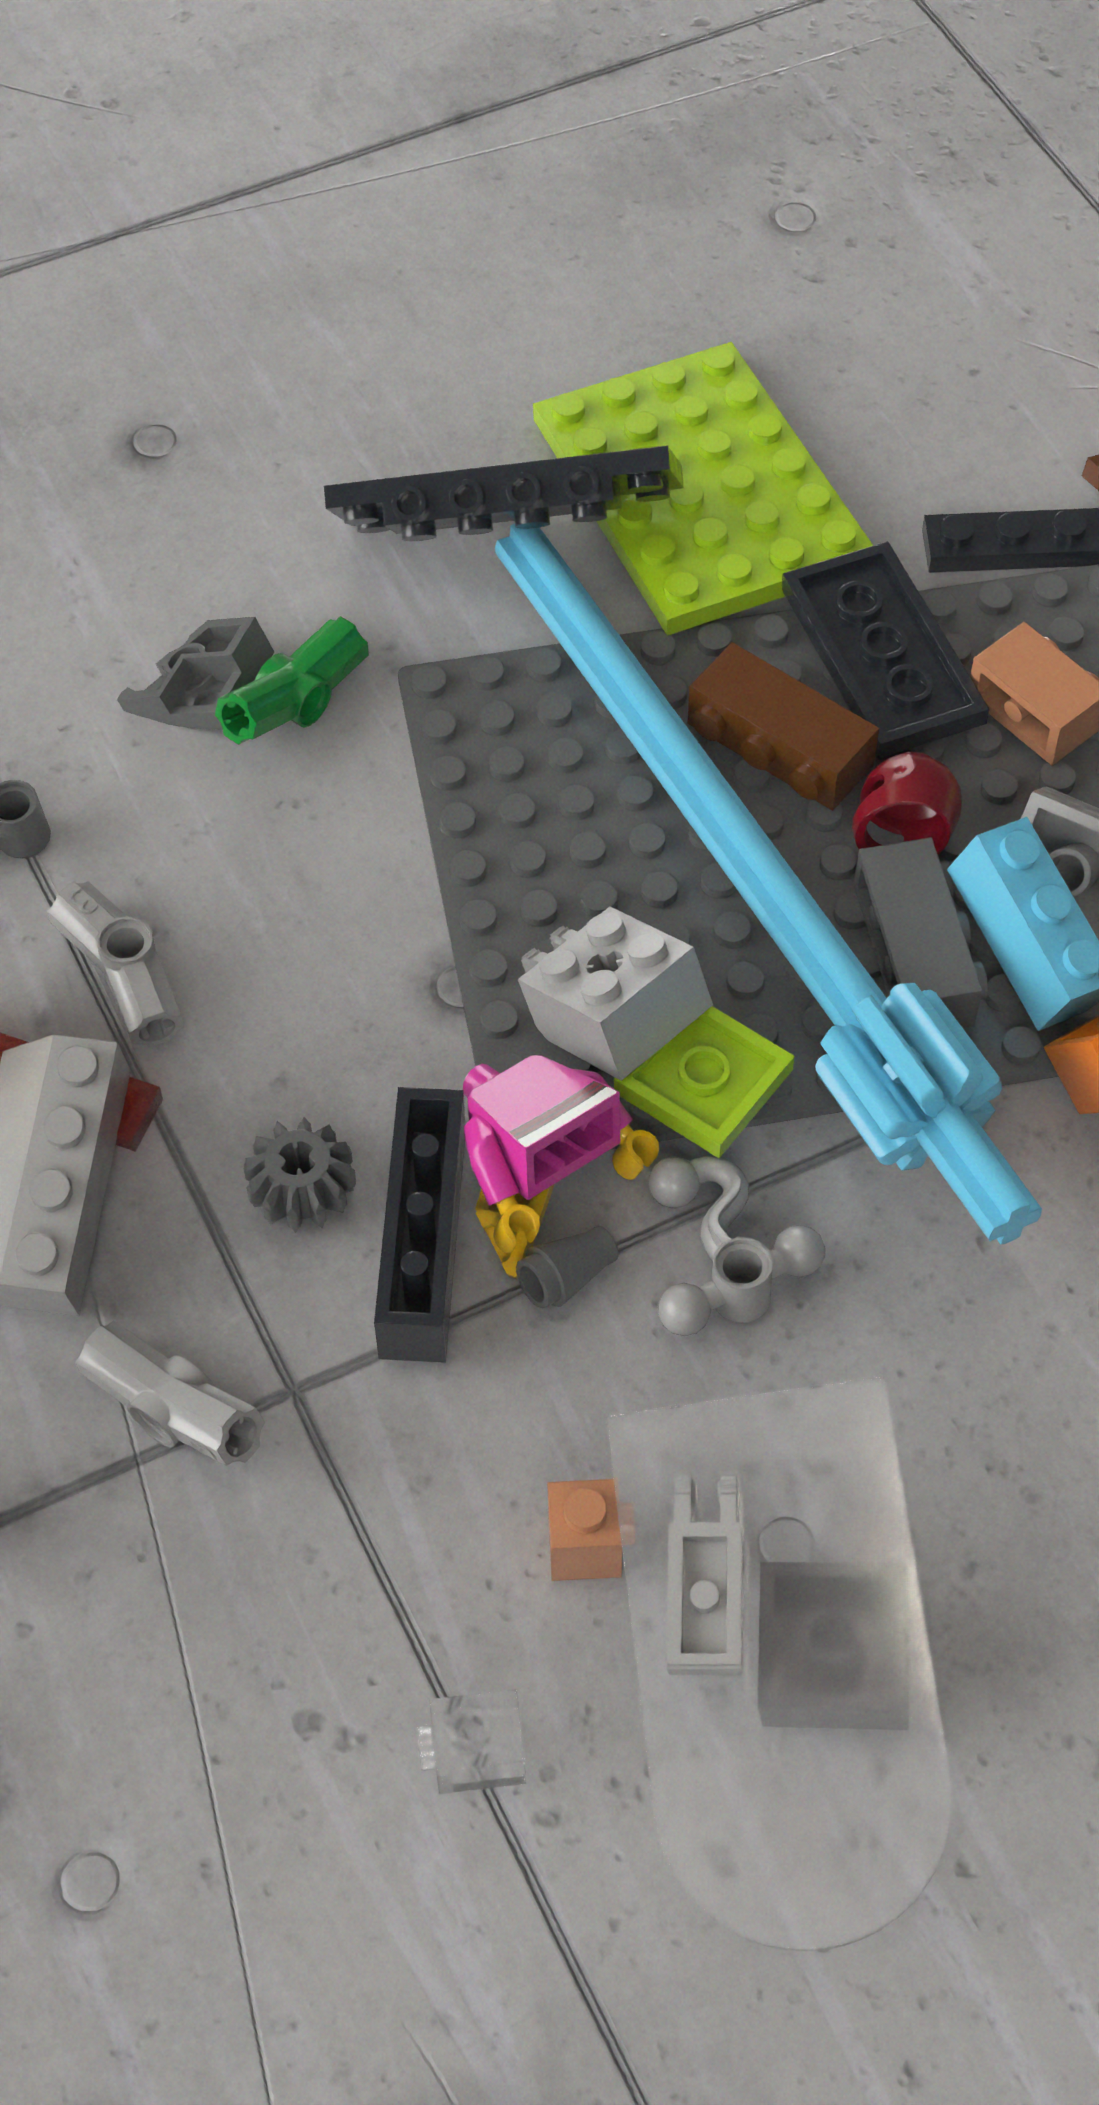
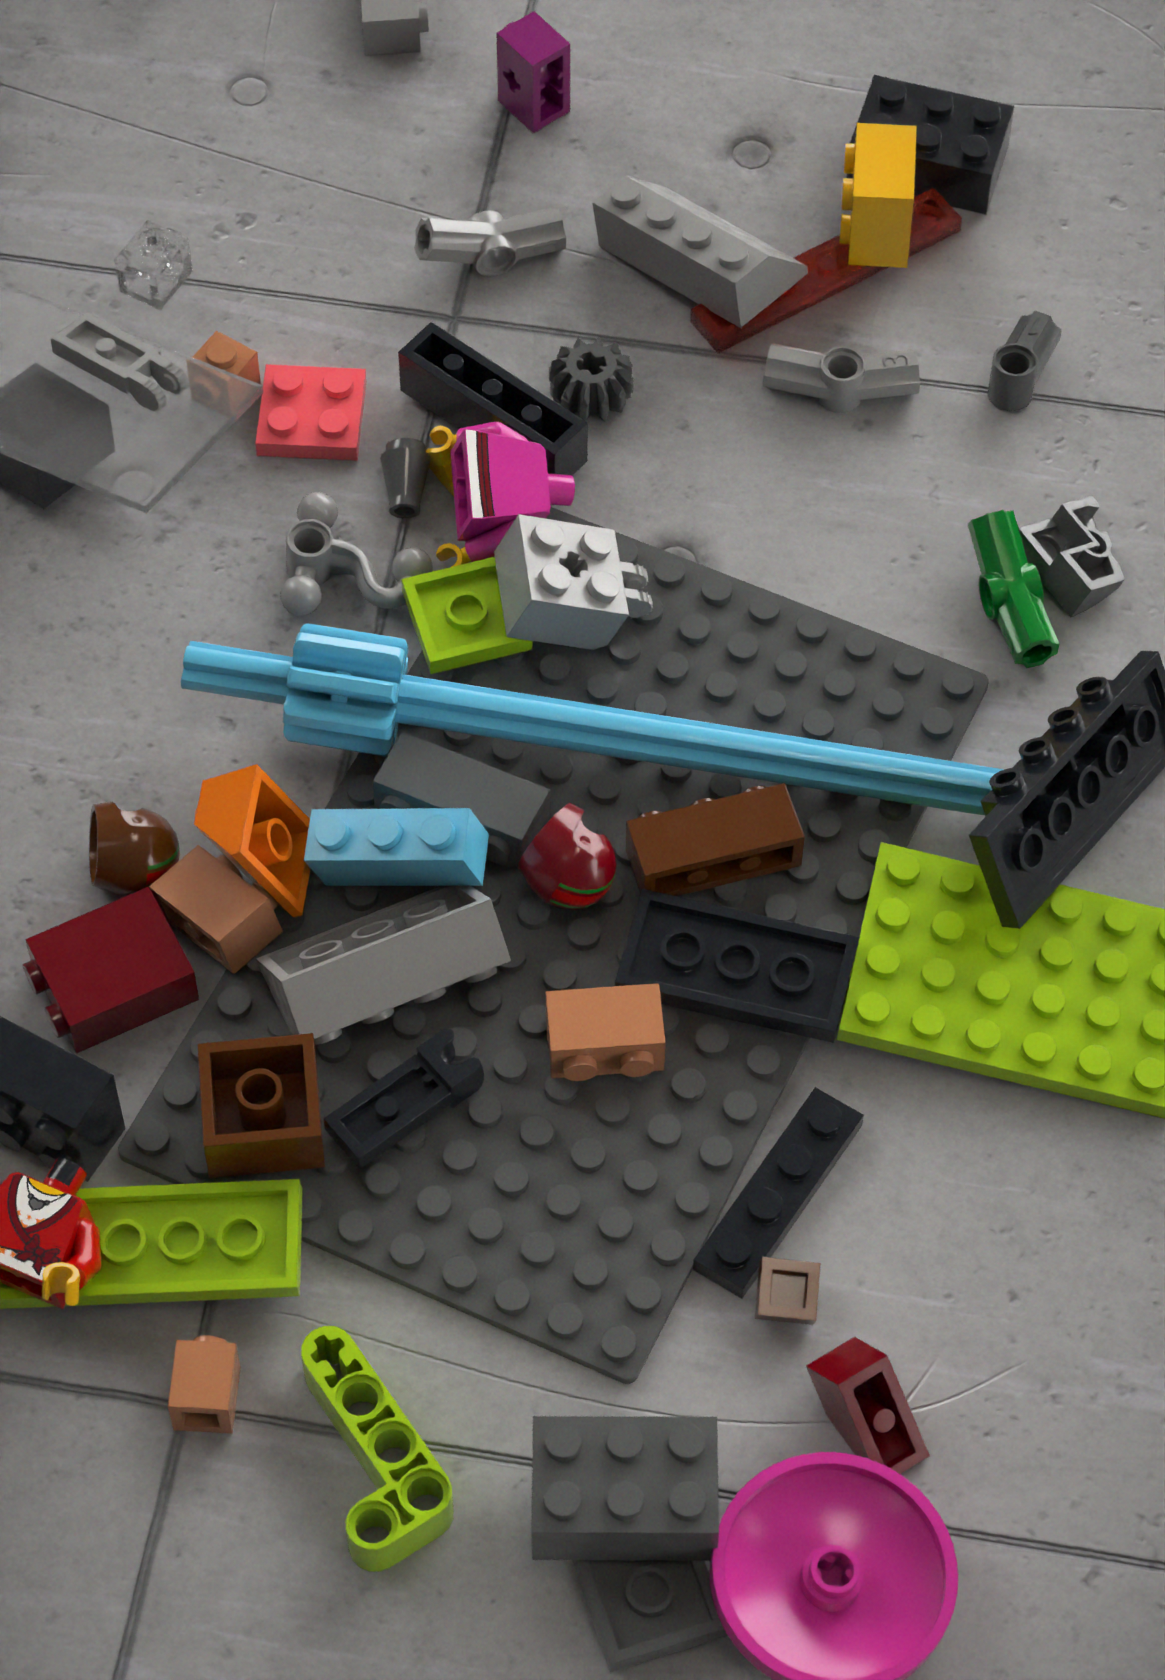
camera: 125 degrees right, 0 degrees up
(539, 1427) = (311, 412): none -> coral plate

